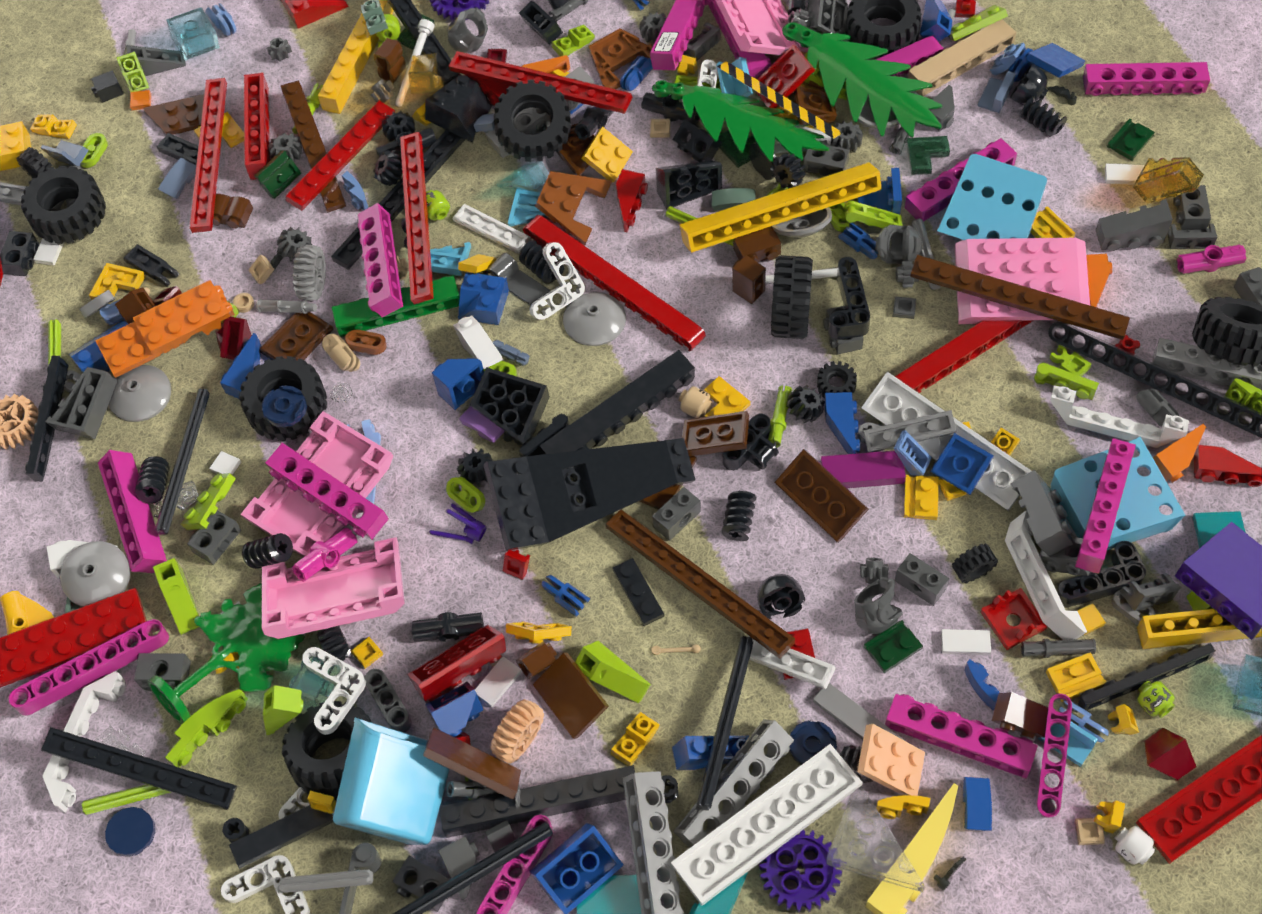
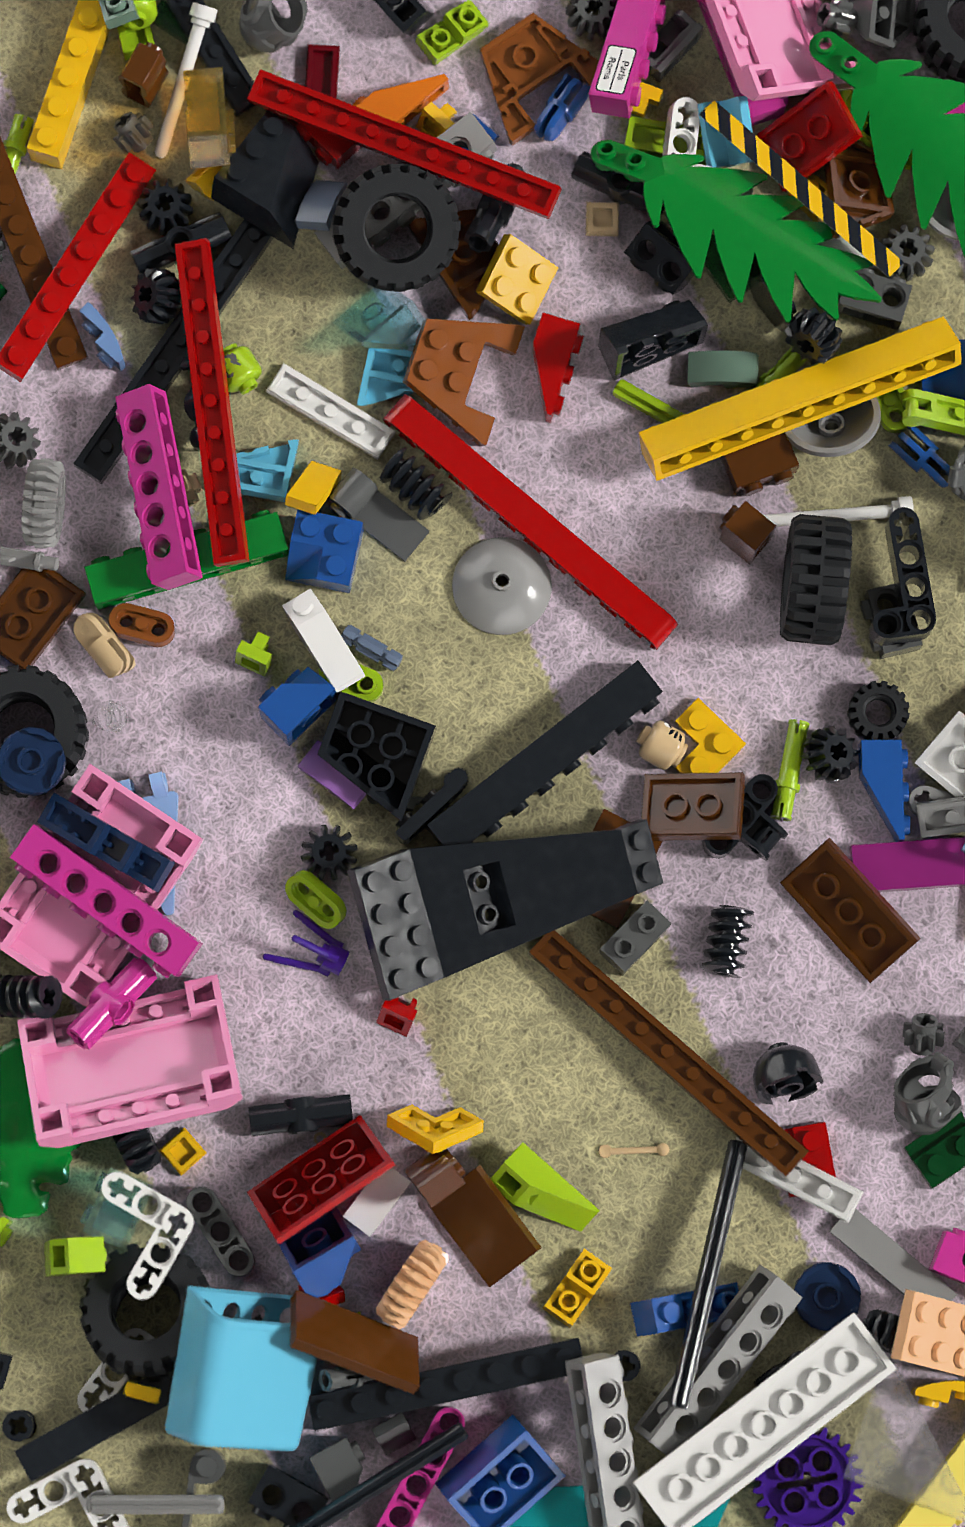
camera: 10 degrees left, 20 degrees up
(330, 457) = (106, 842): none -> dark blue slope
(434, 354) = (255, 655): none -> lime tile
(564, 287) = (453, 536): white beam -> none
(564, 593) = (472, 1066): blue arm -> none
(638, 592) = (578, 1059): black plate -> none

